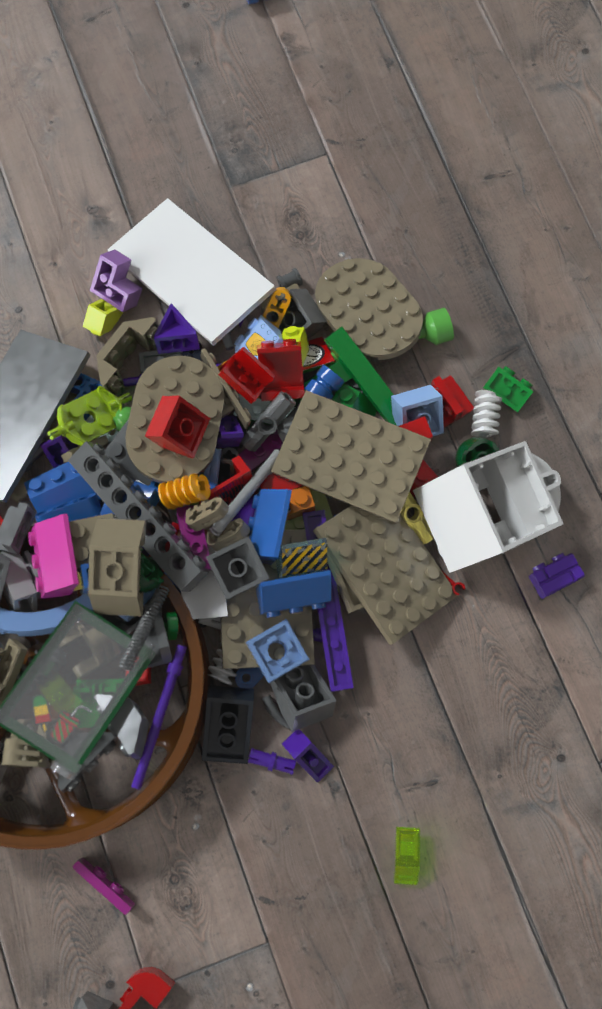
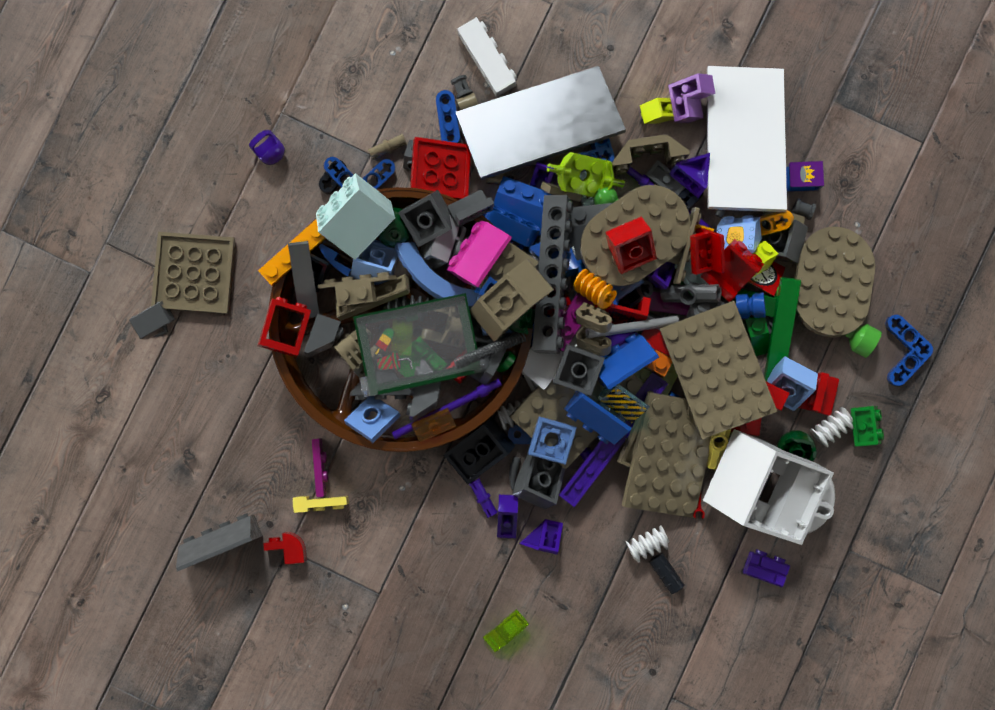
camera: 45 degrees right, 10 degrees up
(111, 796) = (375, 427): none -> medium blue piece
(122, 931) = (303, 503): none -> light yellow plate
(161, 742) = (433, 425): none -> clear orange plate
(265, 254) = (804, 176): none -> dark purple piece
(356, 739) = (545, 537): none -> dark purple slope
(444, 654) = (648, 544): none -> white piece
(483, 300) = (913, 353): none -> blue beam
(484, 663) = (666, 573): none -> black axle

